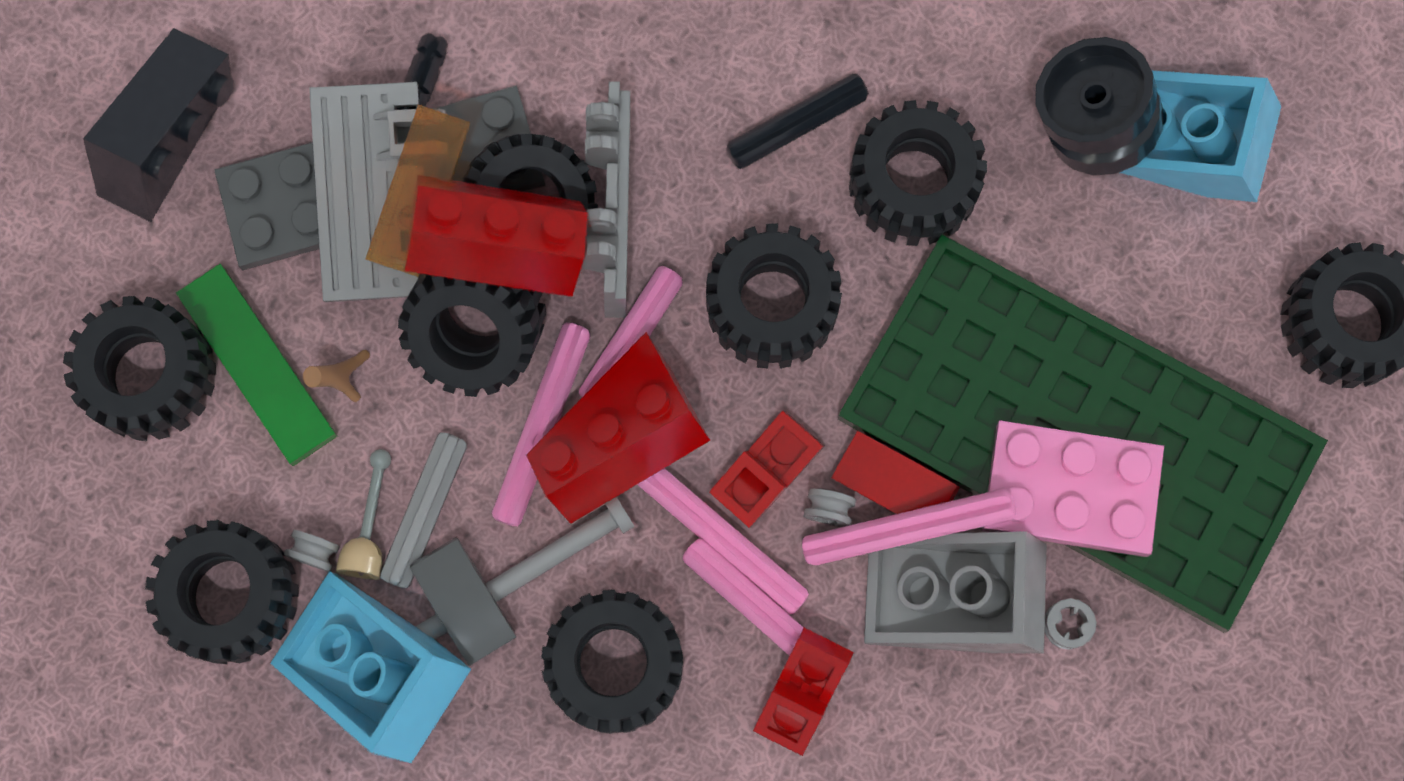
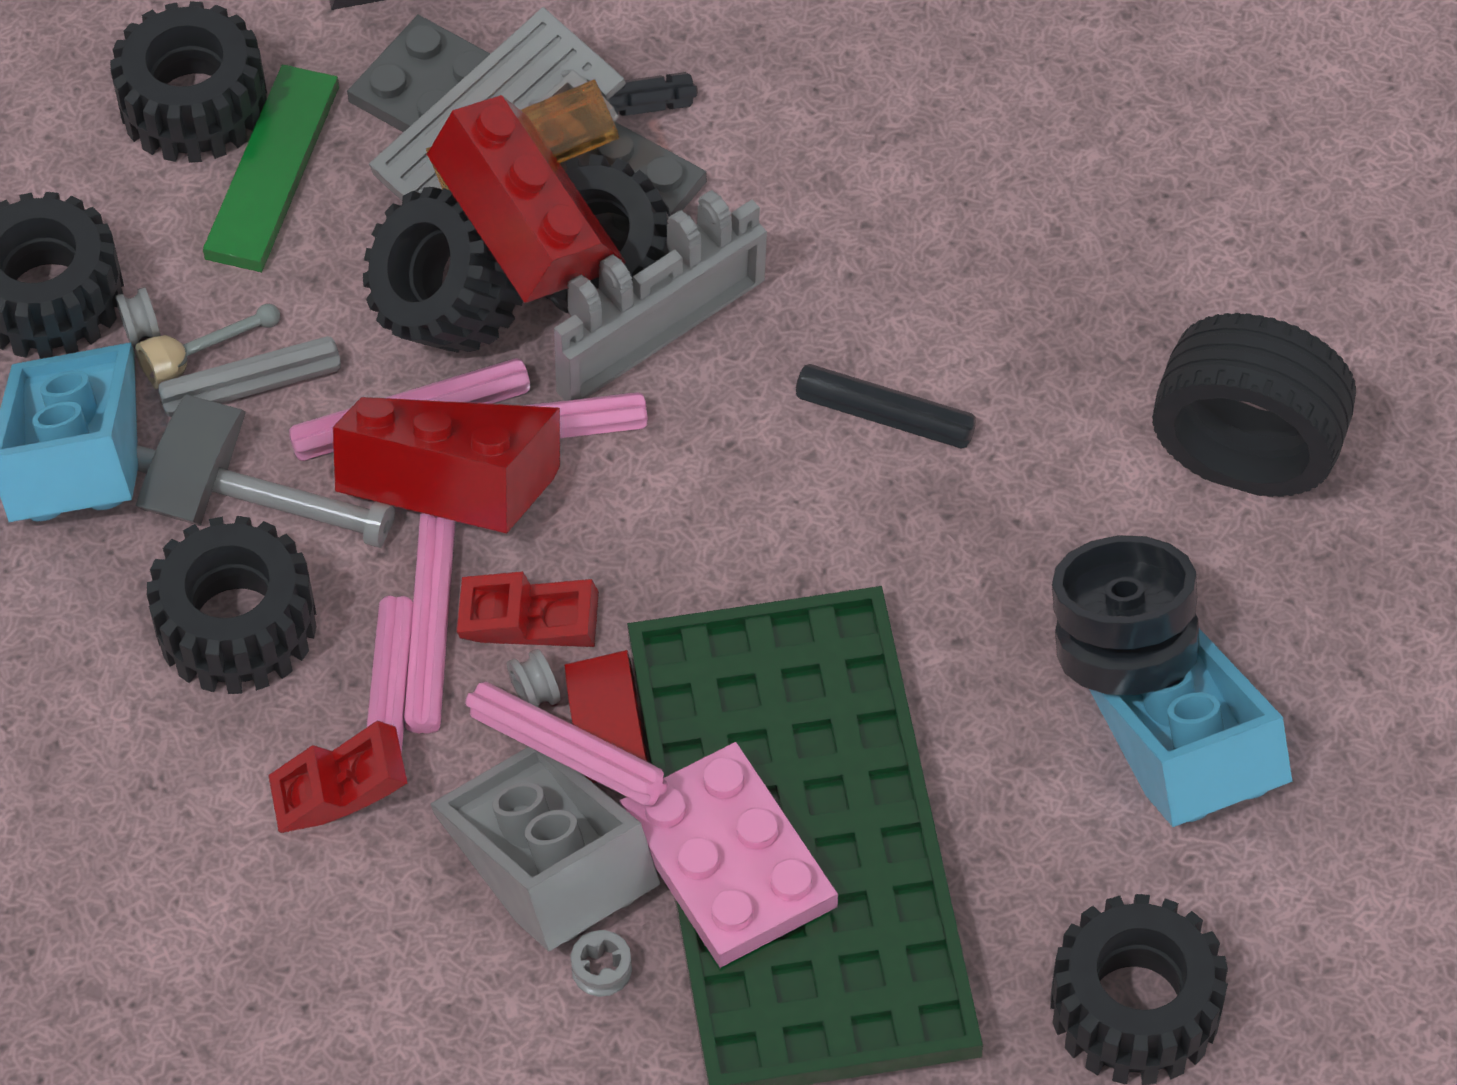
camera: 50 degrees right, 20 degrees down
(336, 375) = (311, 223): medium nougat bar -> none
(781, 253) = (699, 531): black tyre -> none
(924, 132) = (911, 563): black tyre -> none

